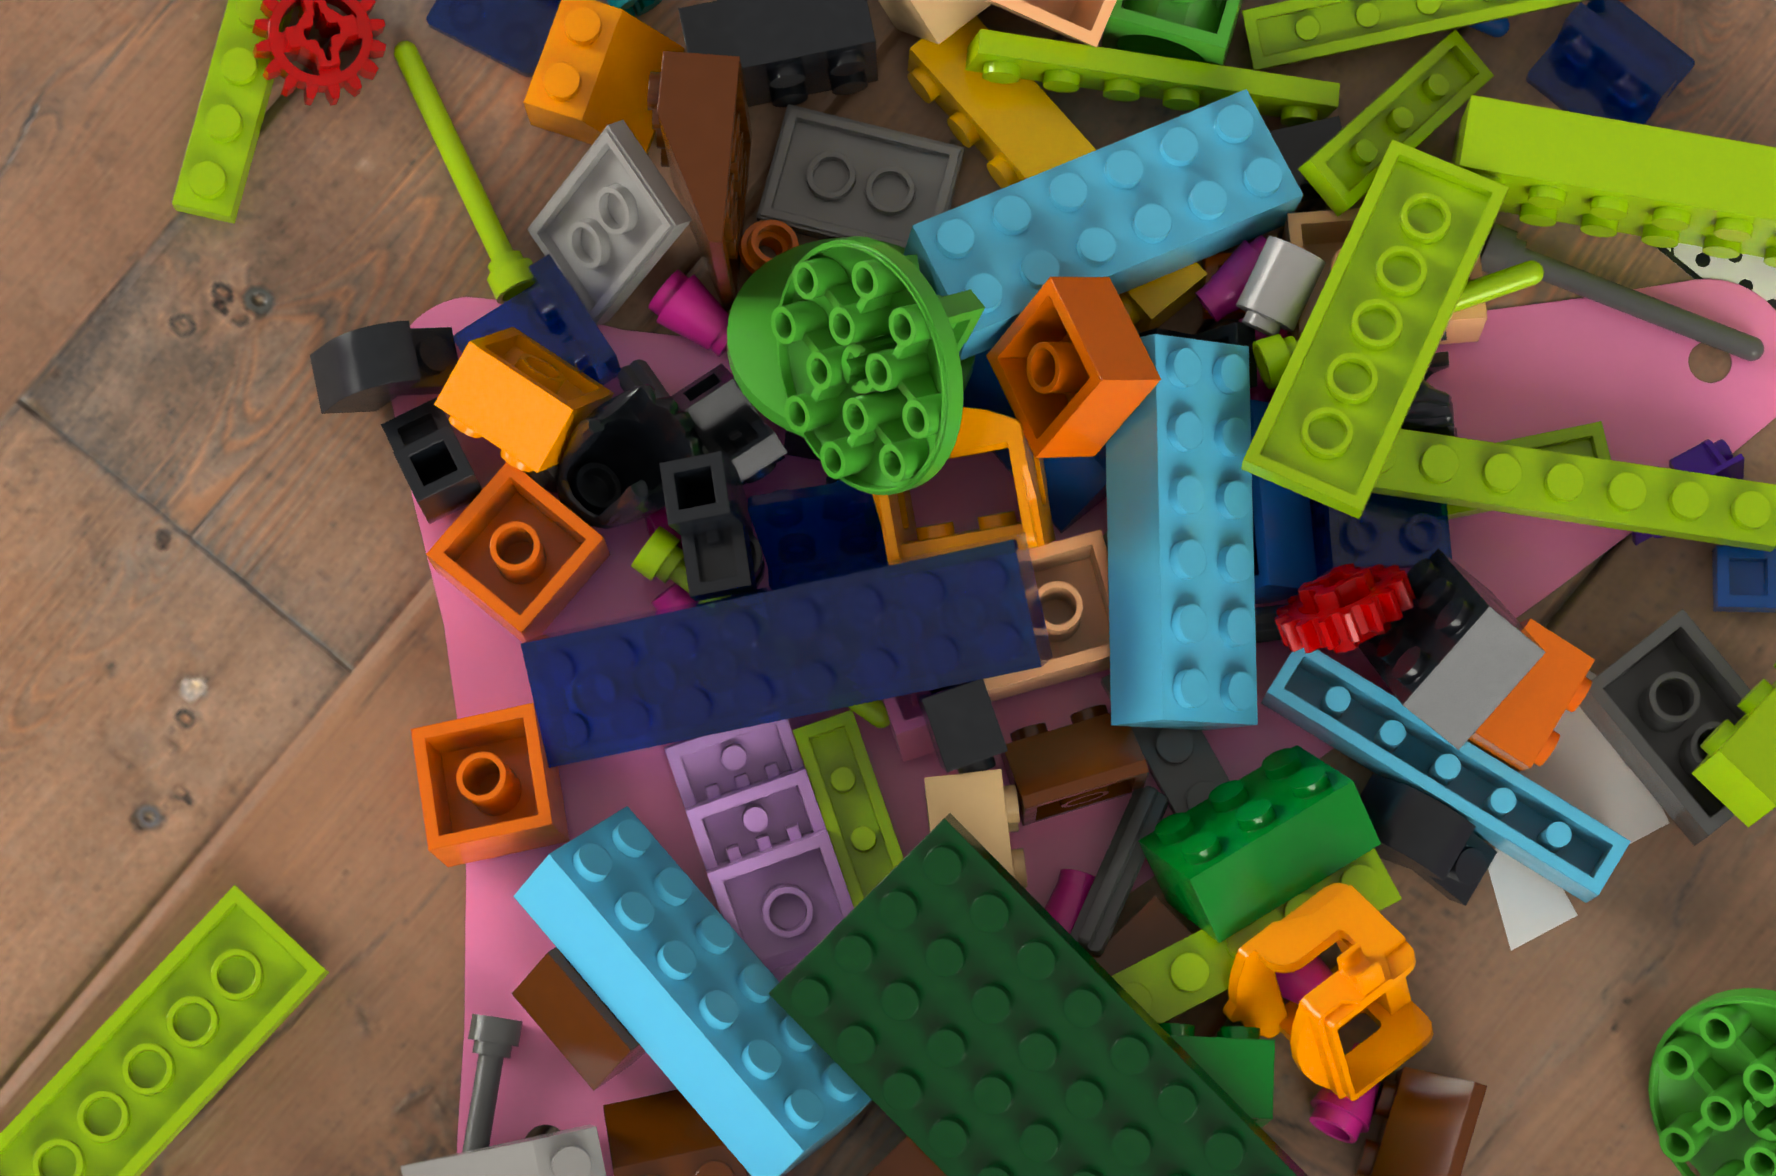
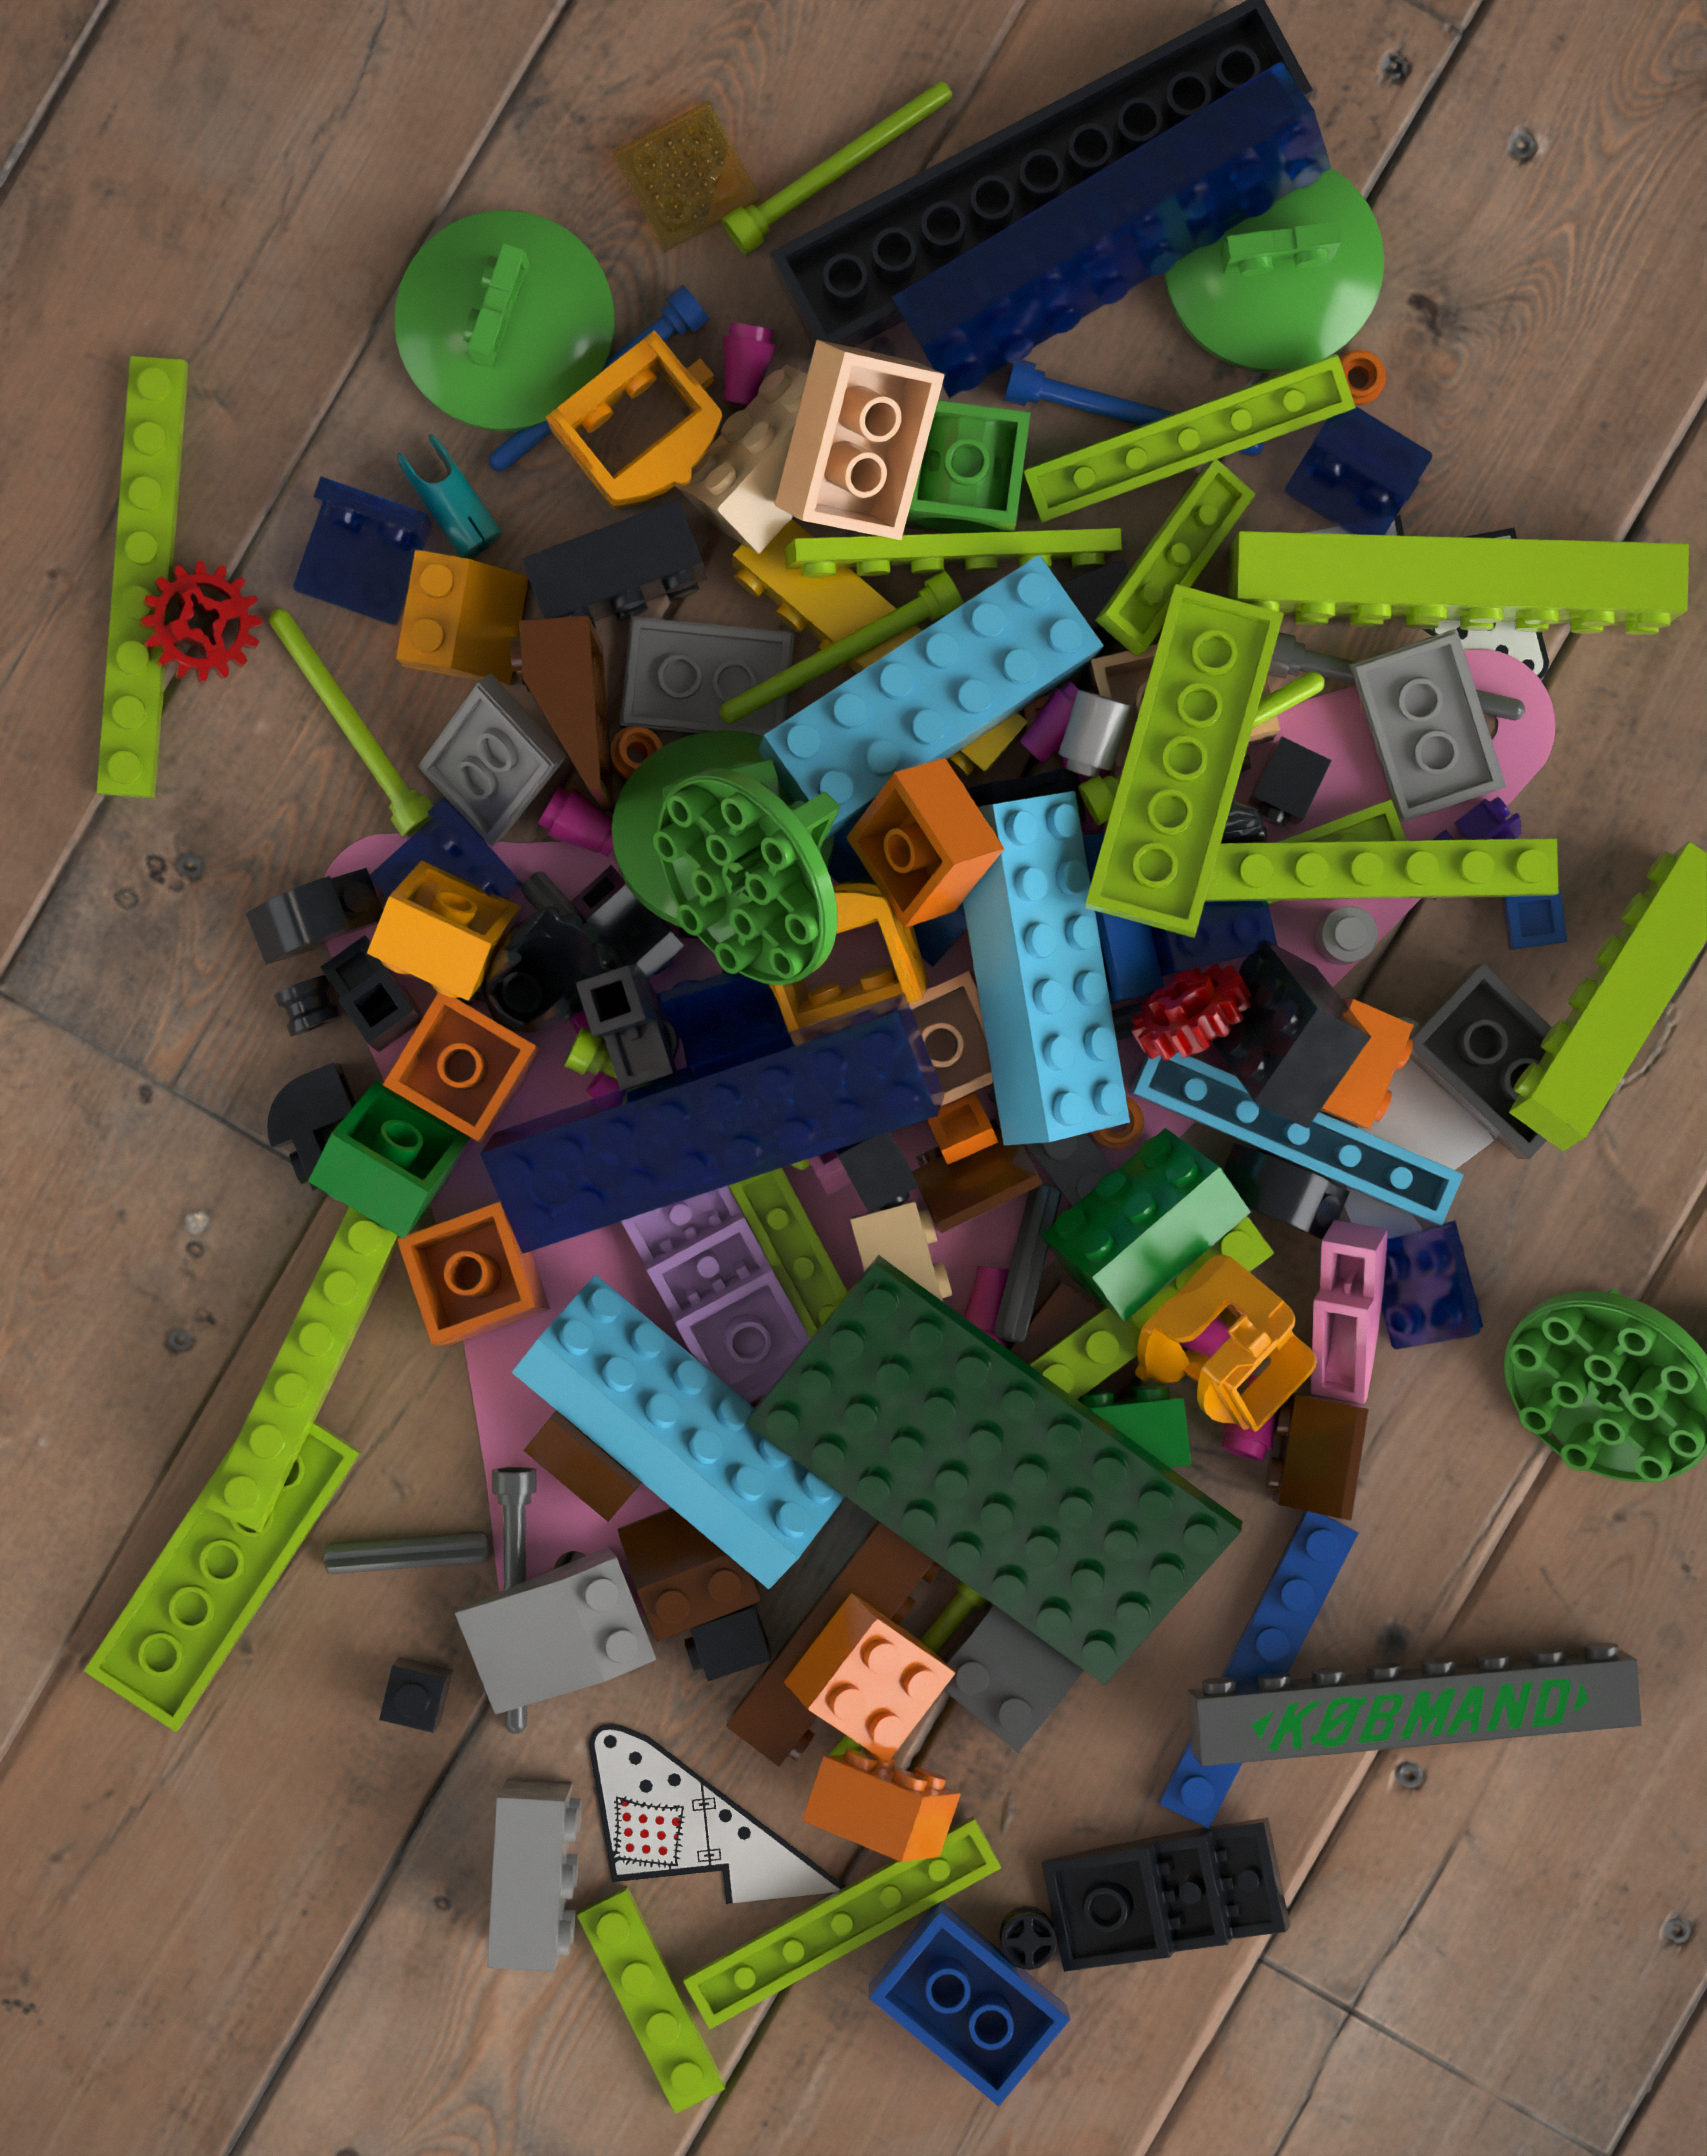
camera: 15 degrees left, 10 degrees up
(281, 859) = (303, 1371): none -> lime brick
(337, 577) = (305, 1109): none -> black brick
(358, 1094) = (406, 1553): none -> dark grey axle
(359, 465) = (308, 1005): none -> black wheel
(418, 640) = (389, 1159): none -> green brick
(1066, 703) = (962, 1128): none -> orange plate
(1127, 120) = (933, 601): none -> lime piece
(1248, 752) = (1128, 1135): none -> orange plate
(1478, 980) = (1348, 1310): none -> bright pink slope
(1490, 386) = (1288, 783): none -> black brick
(1530, 562) = (1346, 935): none -> light grey brick
(1568, 969) = (1428, 1288): none -> clear blue bracket
(1652, 348) = (1427, 725): none -> light grey tile

